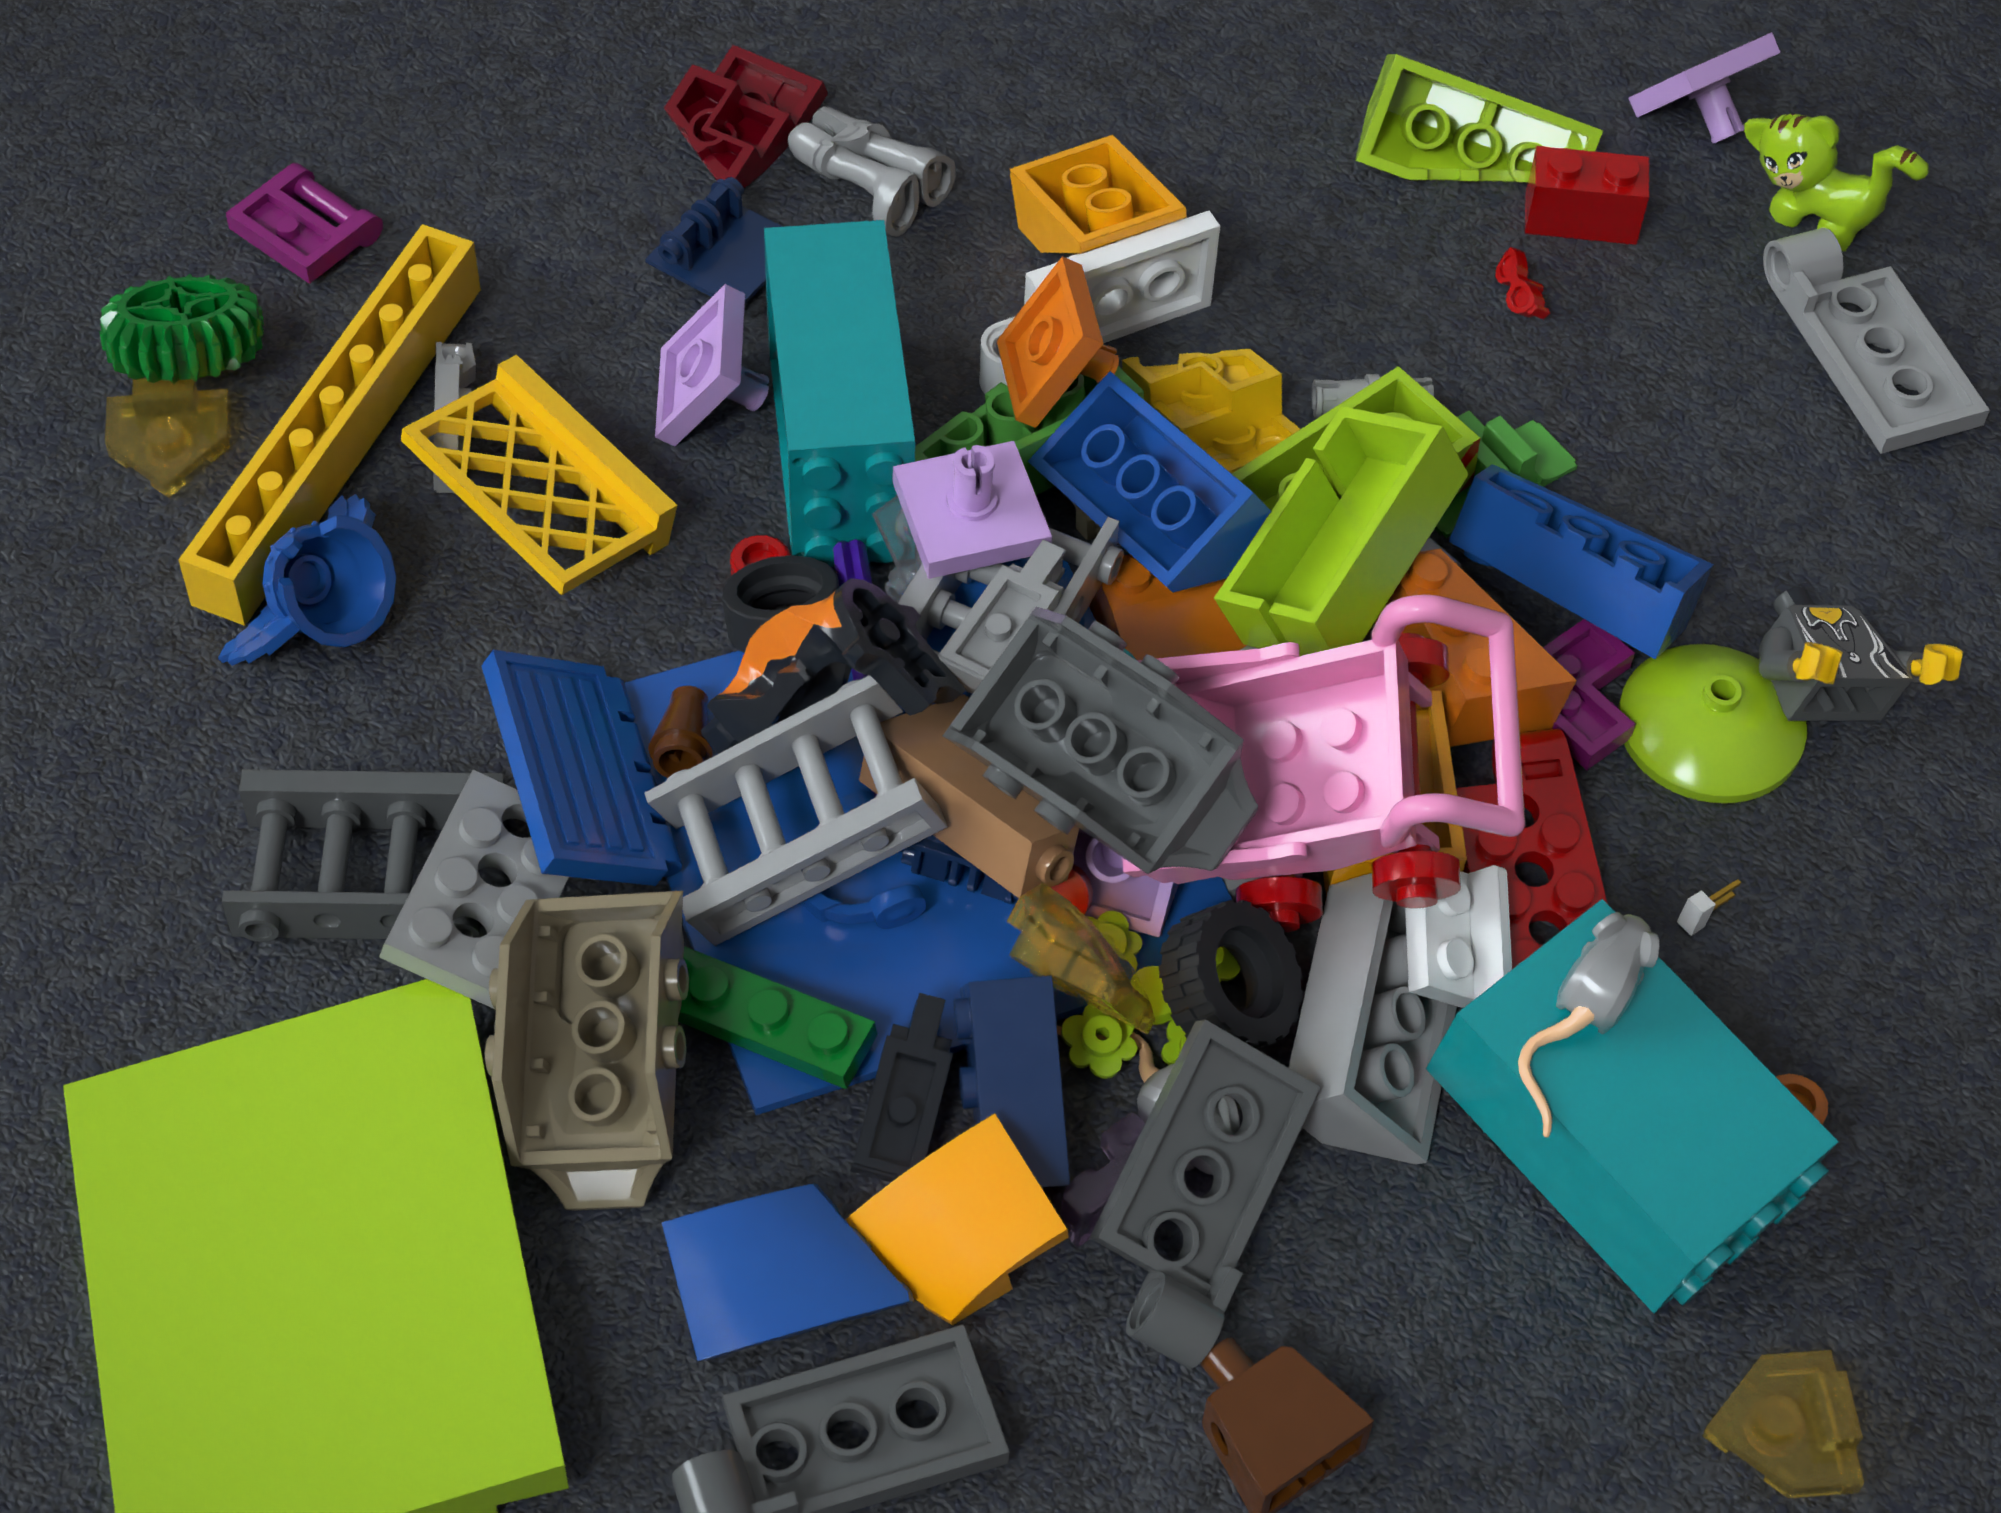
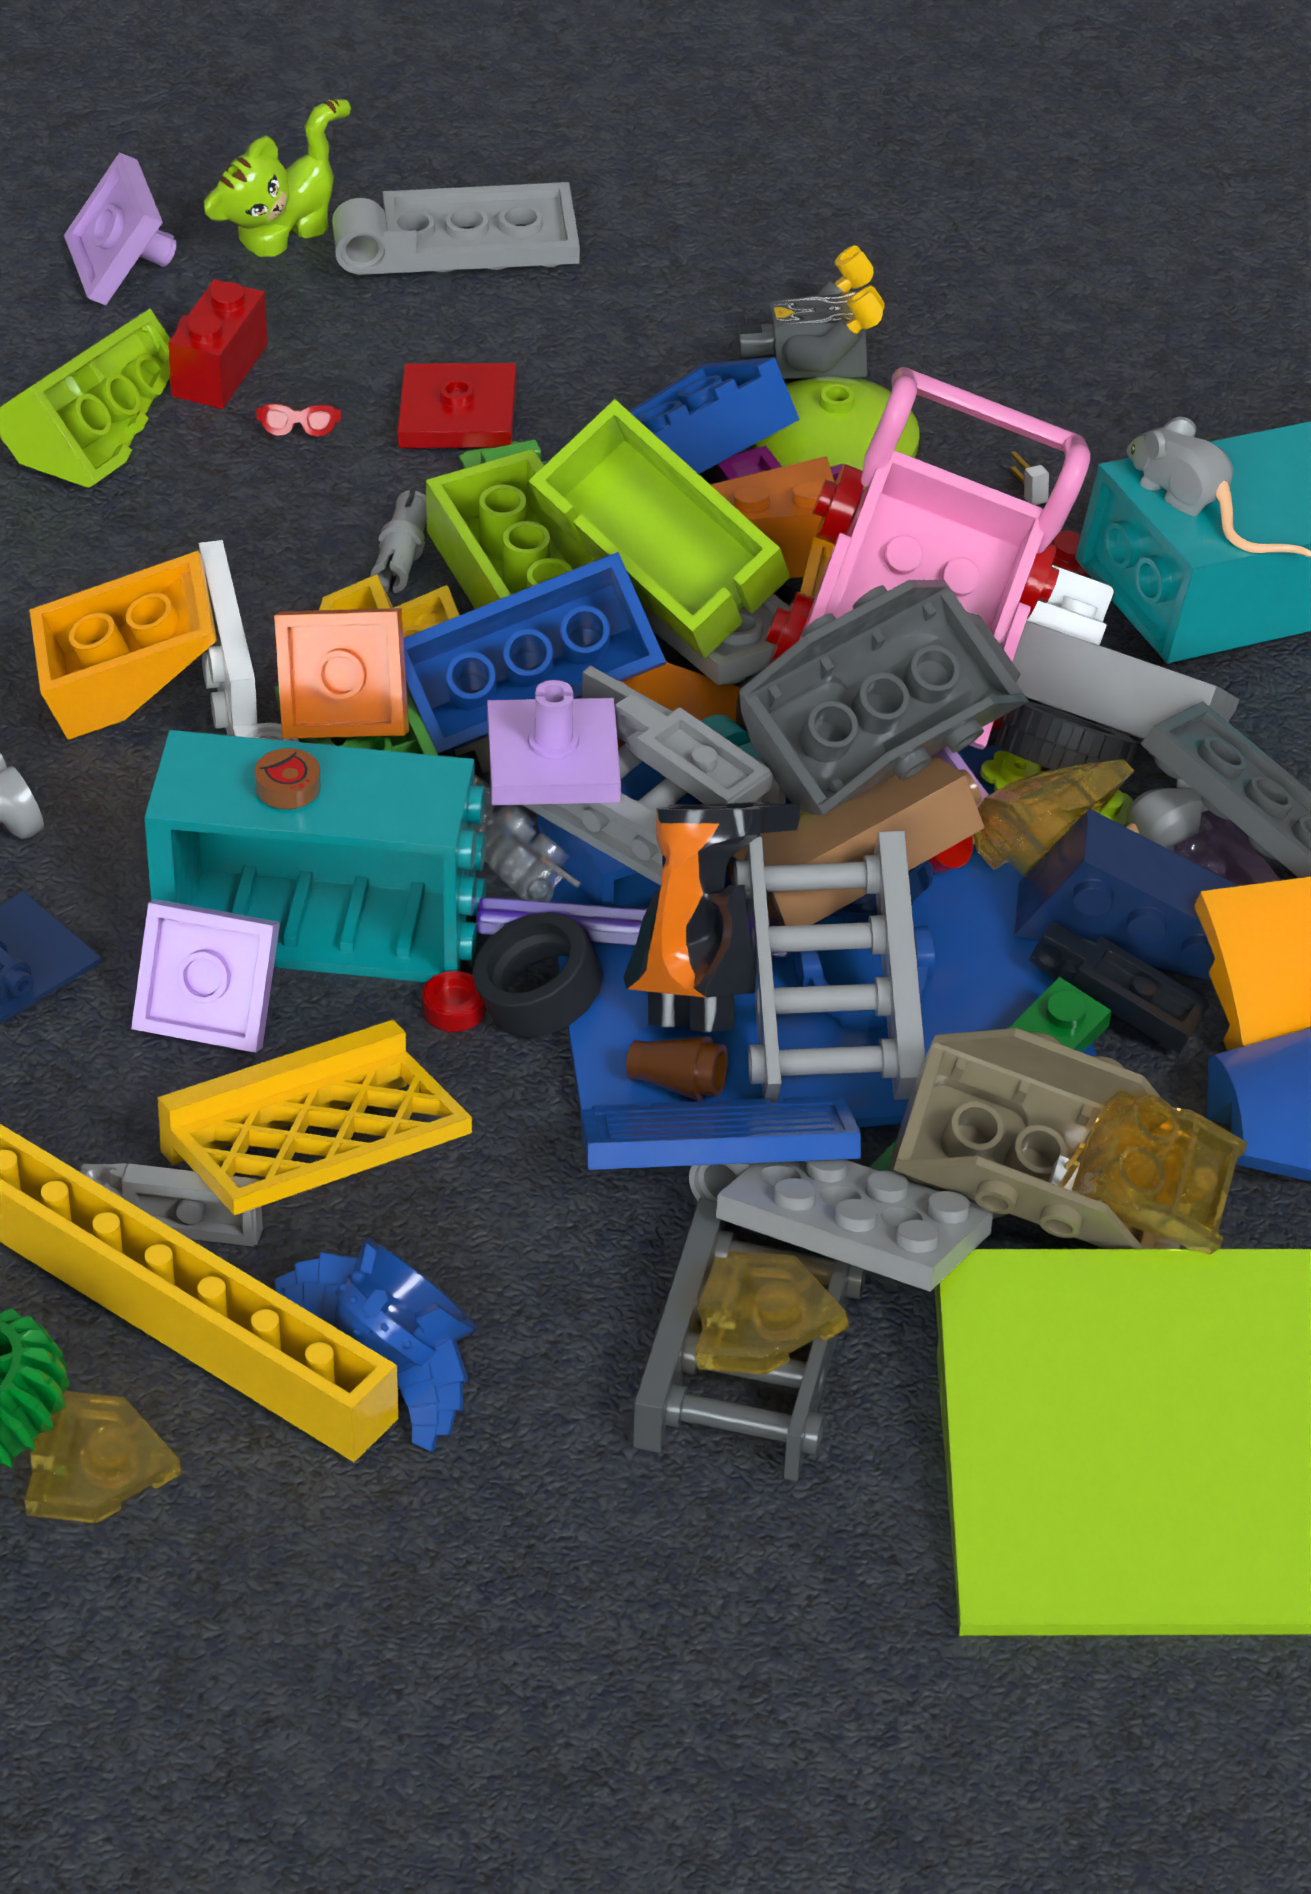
camera: 75 degrees left, 10 degrees down
(364, 840) = (762, 1311): none -> clear yellow plate
(560, 1051) = (1066, 1169): none -> piece
(574, 1135) = (1160, 1169): none -> clear yellow slope
(830, 307) = (287, 778): none -> dark orange tile
(1599, 399) = (457, 405): none -> red plate

